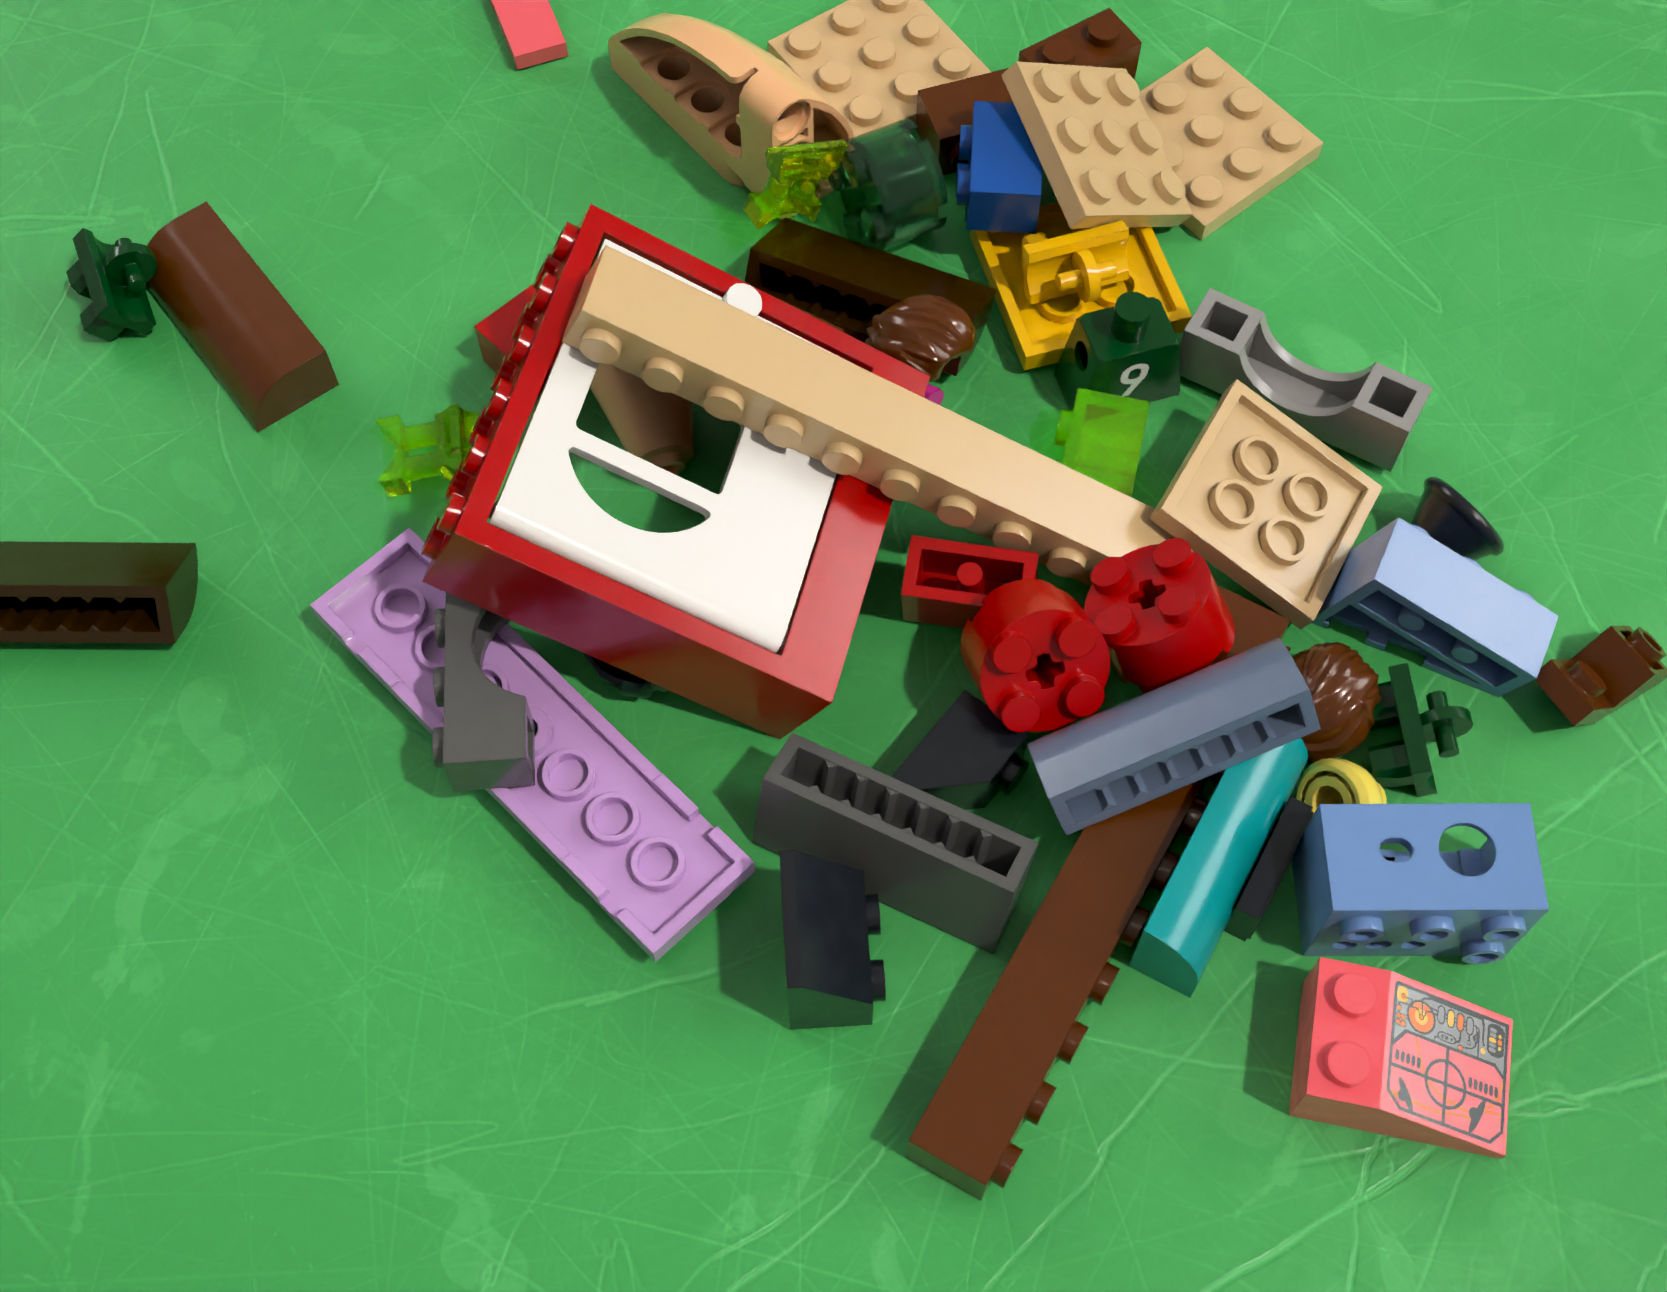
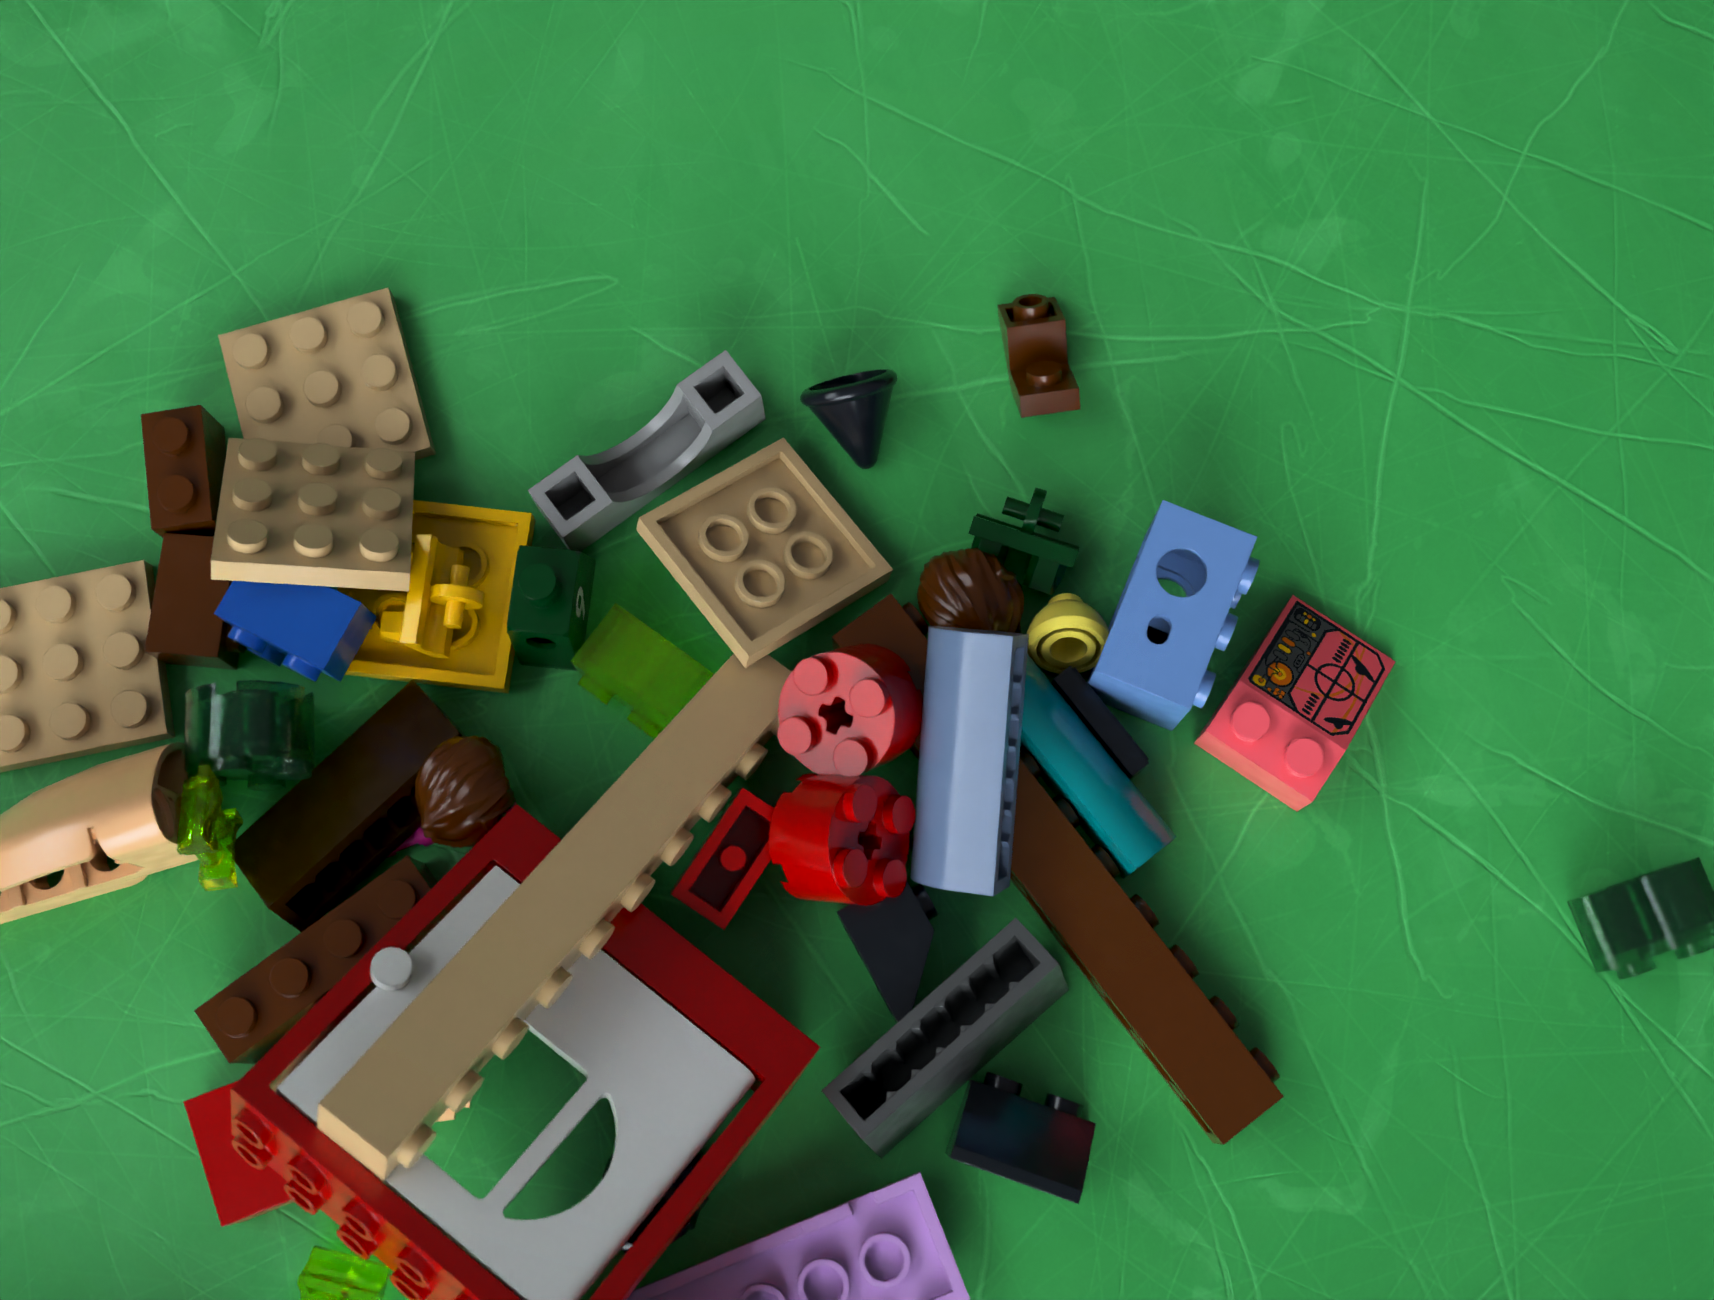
camera: 65 degrees left, 15 degrees up
(1442, 606) = (929, 456): wedge -> none

